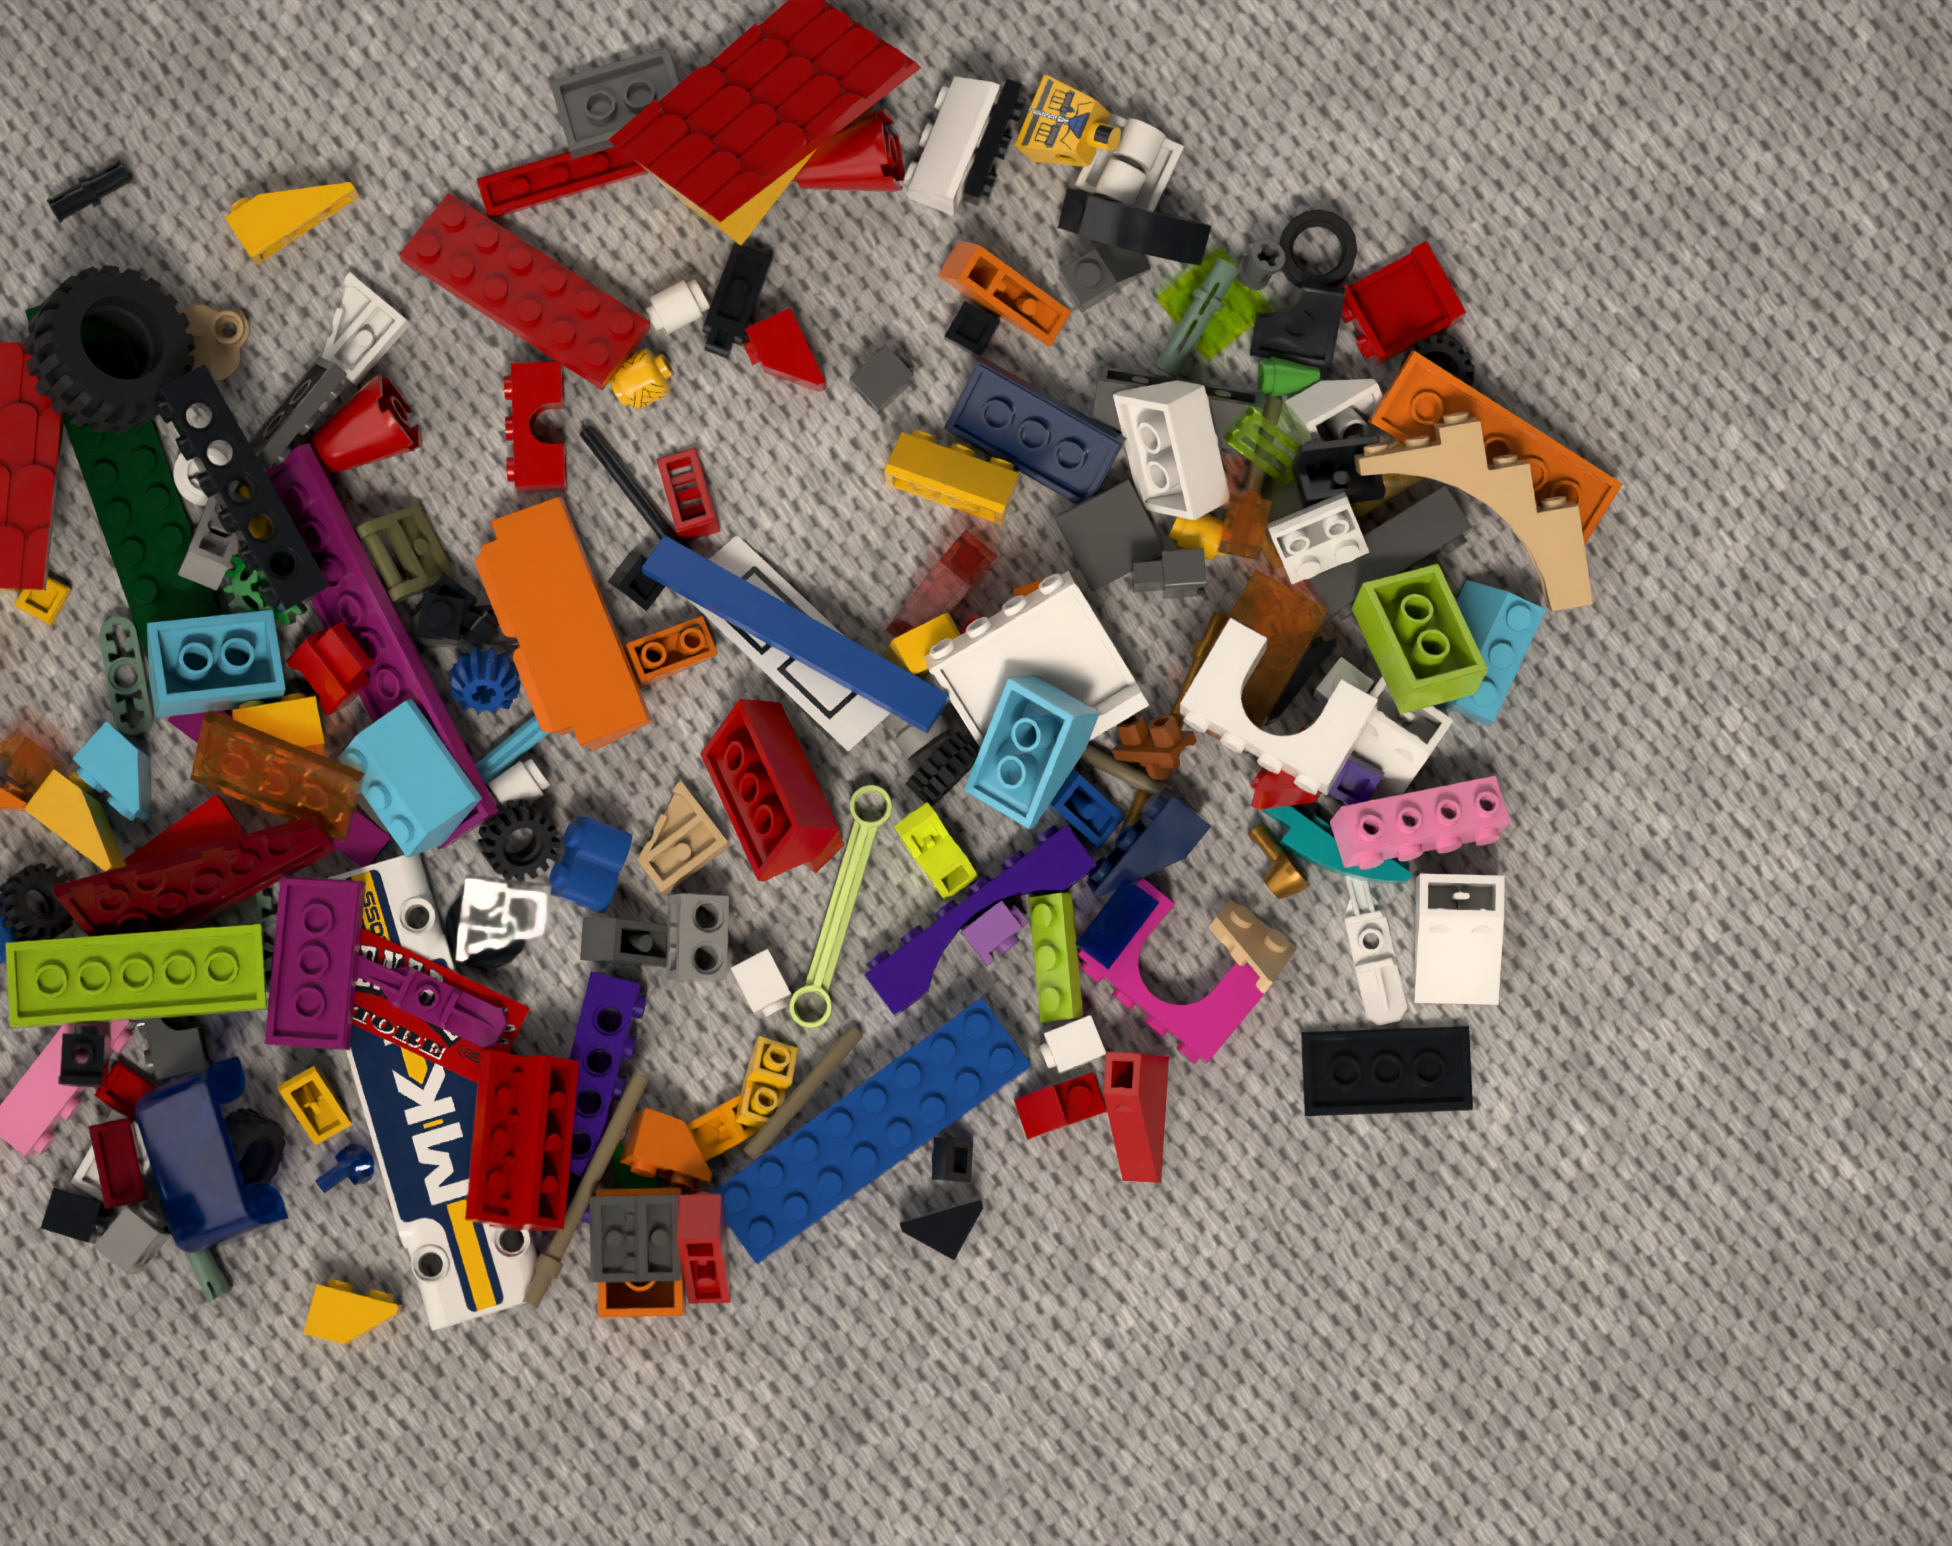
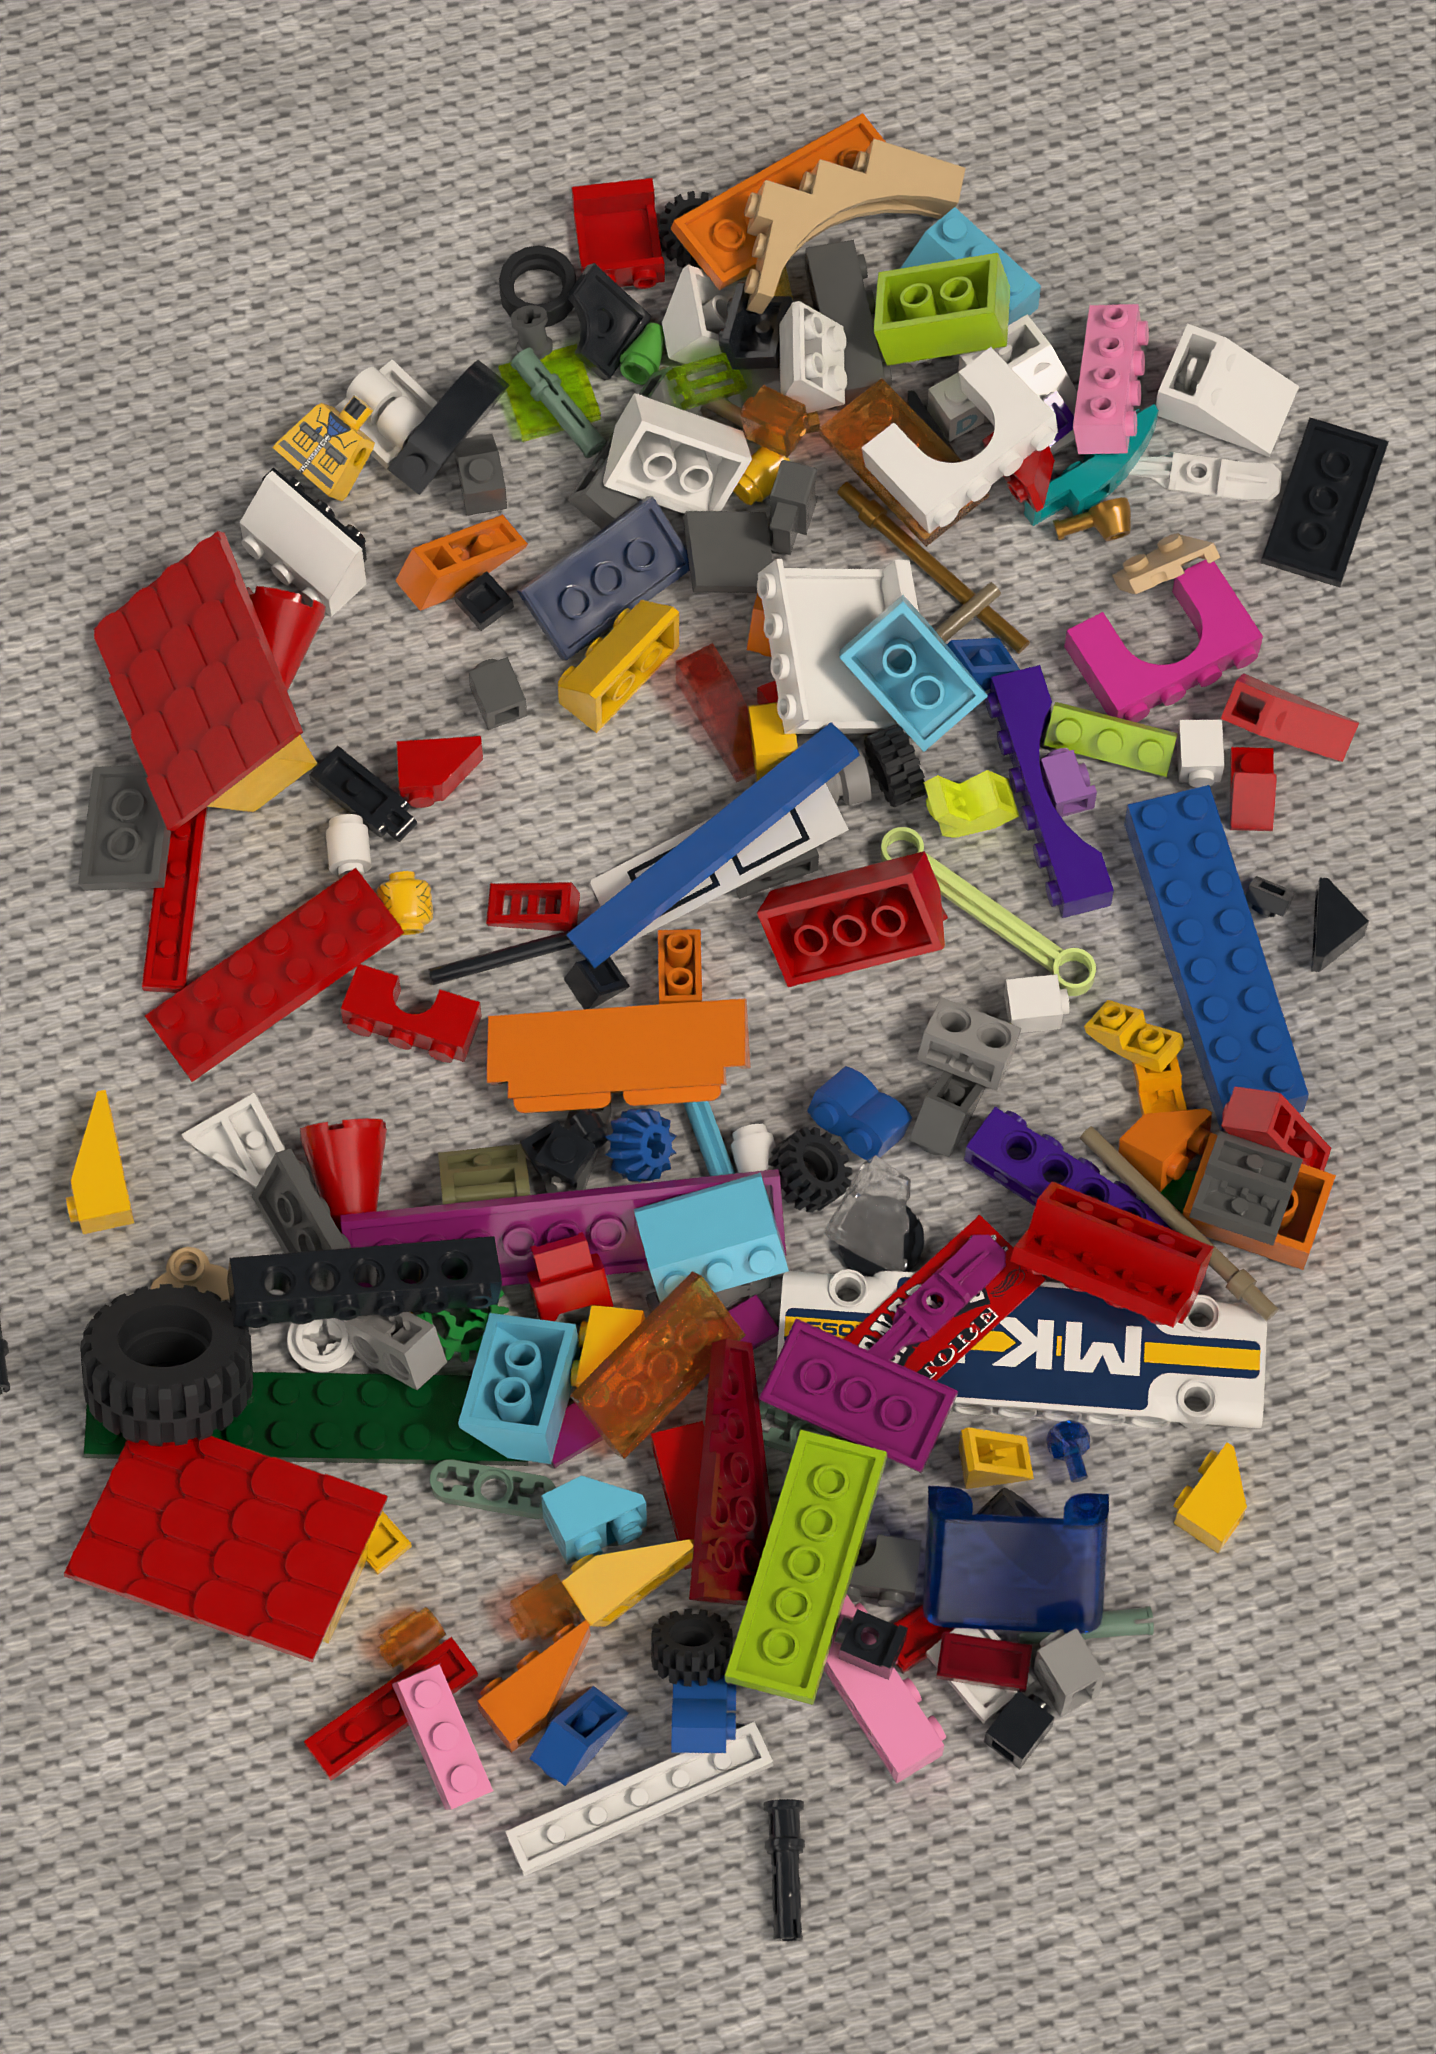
camera: 70 degrees left, 15 degrees down
(681, 842) = (867, 1030): tan wing -> none
(803, 1093) = (1156, 1002): dark tan bar -> none
(1117, 923) = (1104, 661): clear blue plate -> none
(1153, 747) = (948, 578): dark orange hips -> none
(1156, 840) = (1036, 611): dark blue slope -> none

